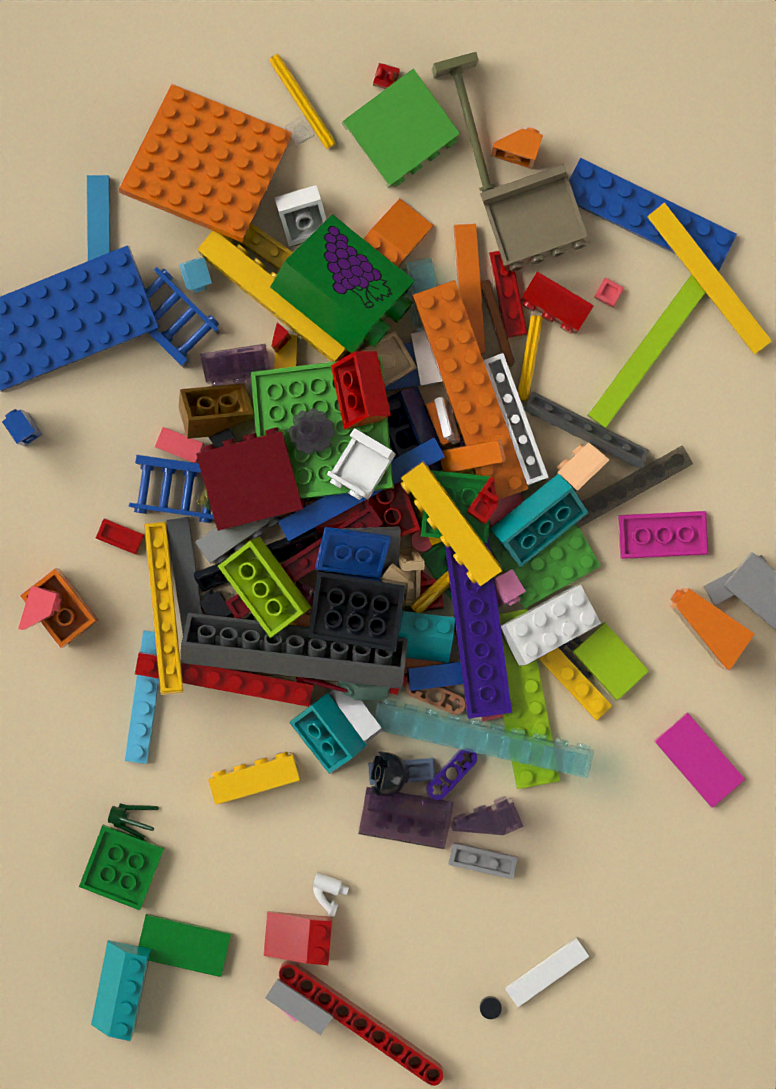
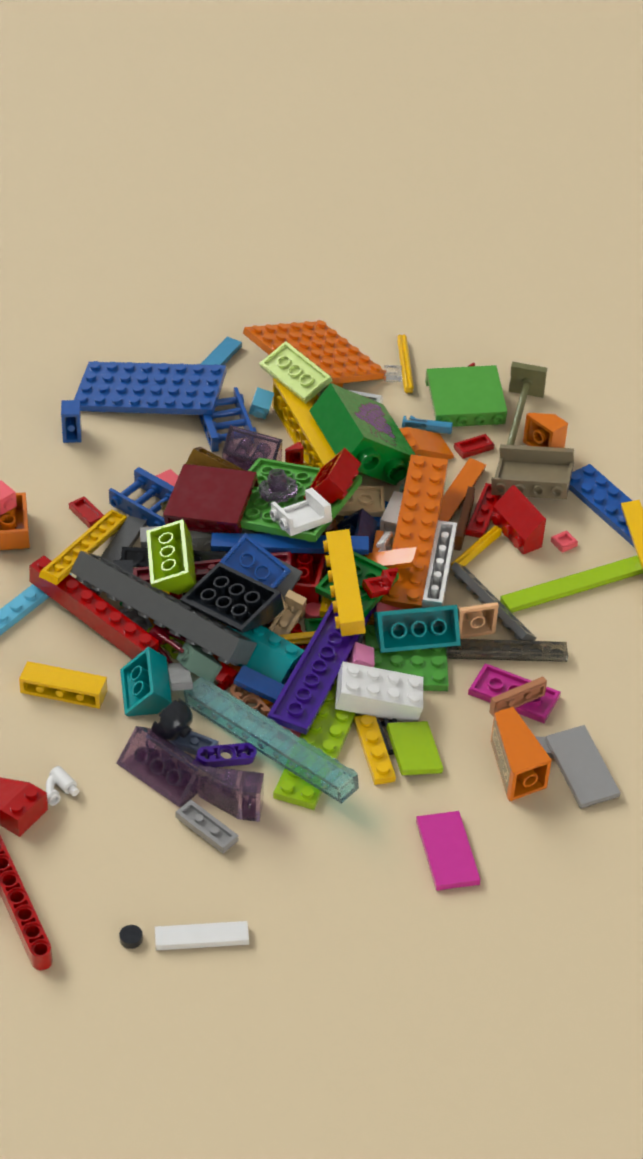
camera: 25 degrees right, 45 degrees down
(220, 234) = (295, 372): none -> yellowish green tile
(383, 199) = (428, 425): none -> dark azure piece
(446, 197) = (474, 446): none -> red tile
(676, 551) = (519, 695): none -> nougat tile

